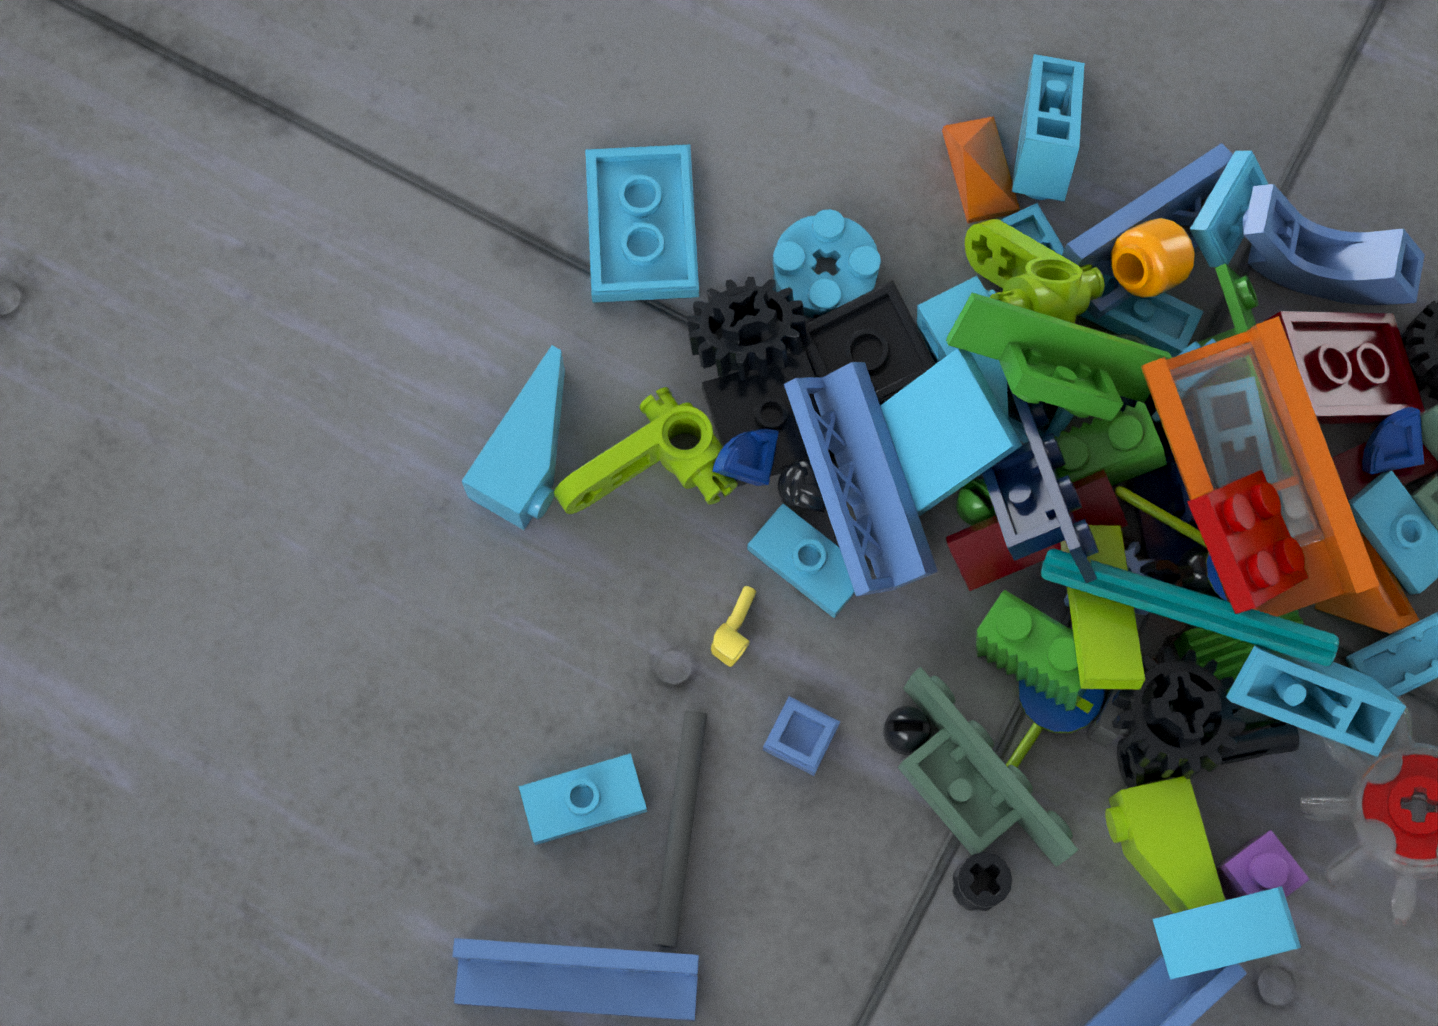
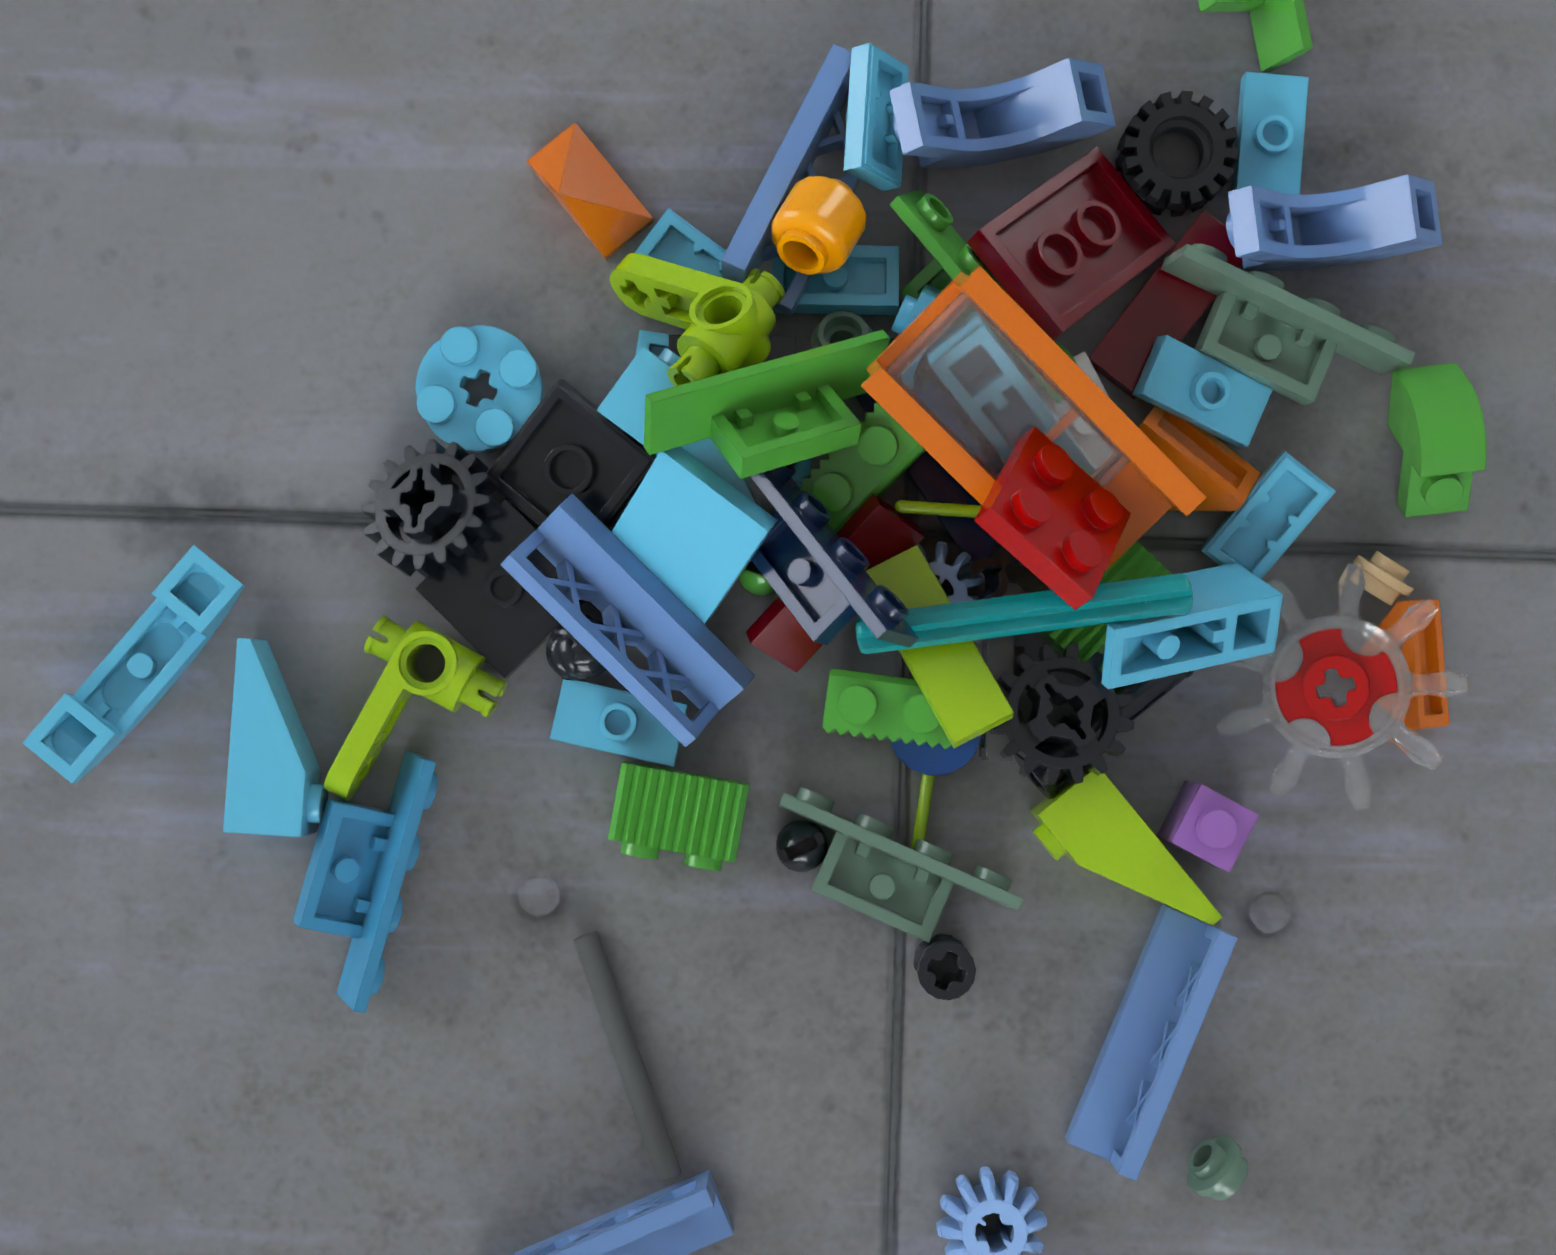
camera: 20 degrees left, 15 degrees up
(464, 339) = (138, 669): none -> medium azure slope
(545, 570) = (360, 872): none -> dark azure bracket
(582, 799) = (518, 1077): medium azure plate -> none
(641, 223) = (260, 437): medium azure tile -> none
(727, 642) = (579, 848): light yellow hand -> none
(748, 457) = (503, 652): blue tile -> none
(801, 735) = (700, 905): medium blue tile -> none
(822, 650) = (678, 814): none -> bright green brick
(1049, 129) = (640, 108): medium azure slope -> none
(1226, 933) = (1202, 911): medium azure slope -> none
(1395, 443) = (1157, 300): blue tile -> none

